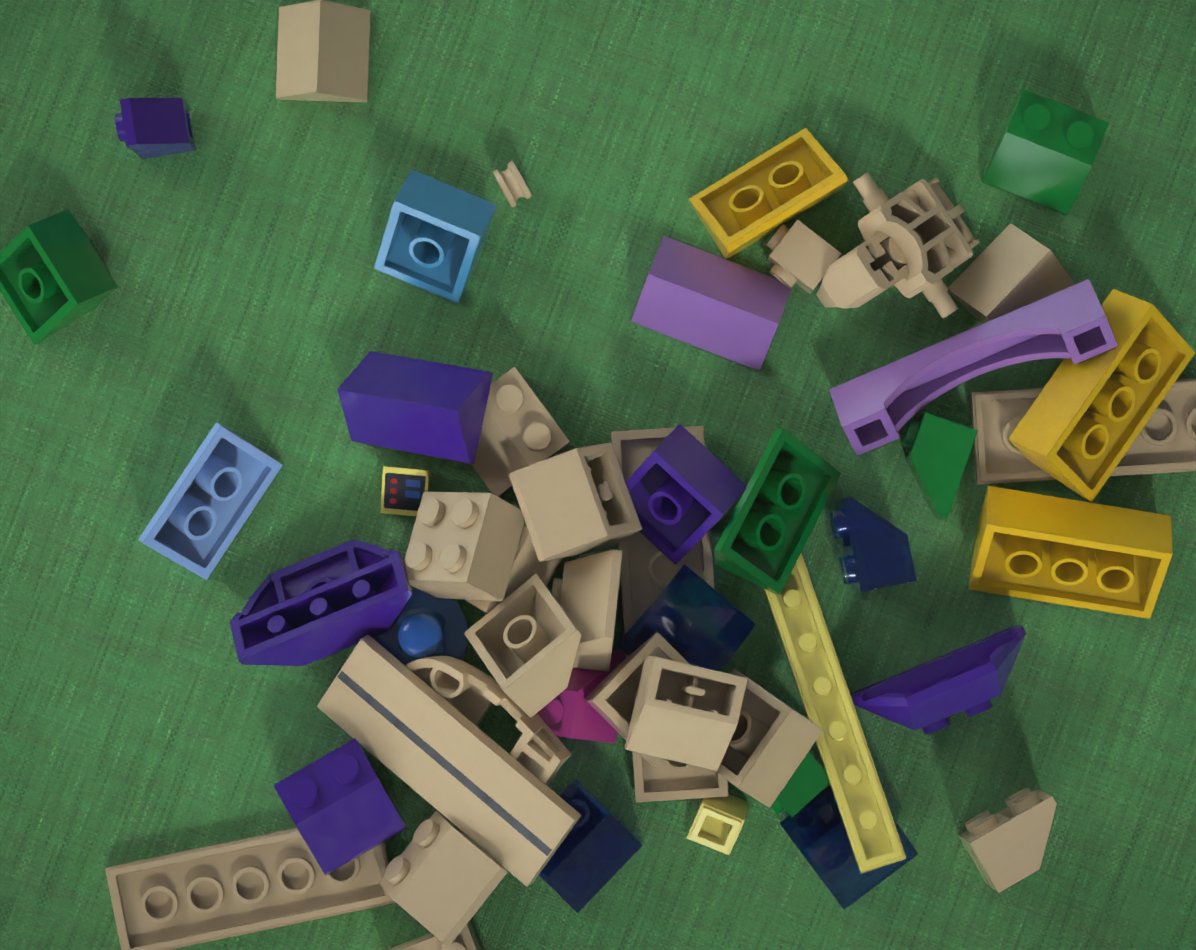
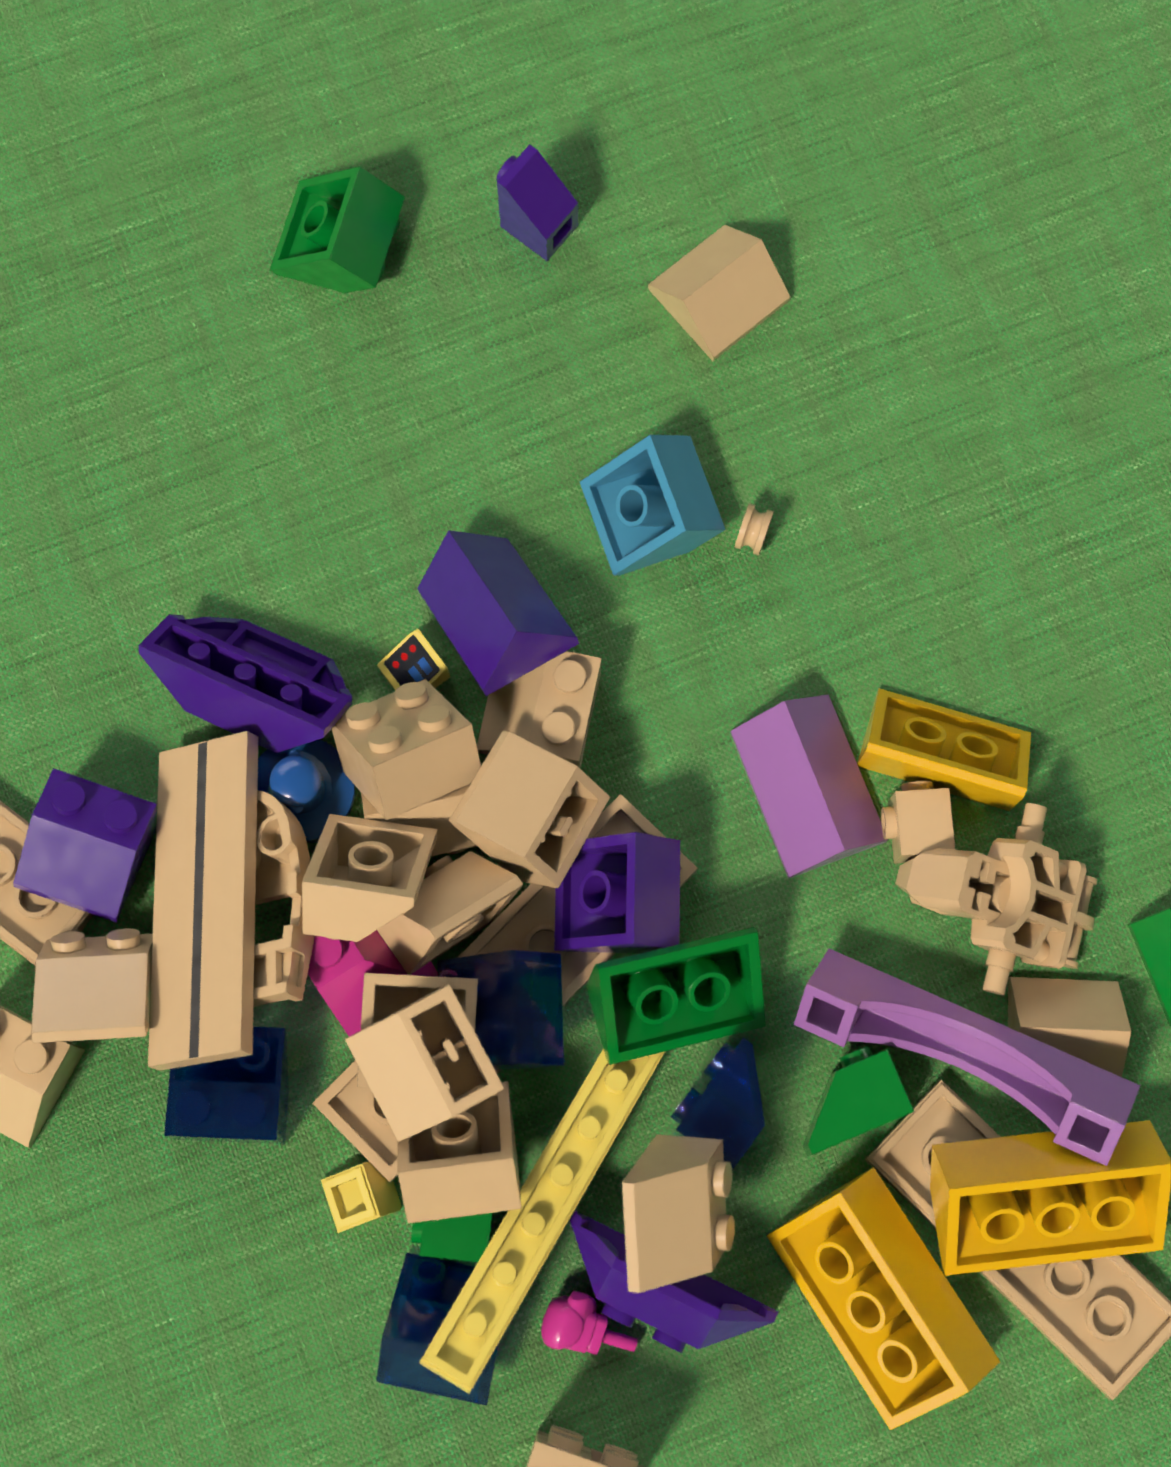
camera: 50 degrees right, 10 degrees down
(210, 501) = (260, 512): light blue slope -> none
(911, 636) = (676, 1211): none -> tan slope
(919, 755) = (575, 1325): none -> dark pink piece

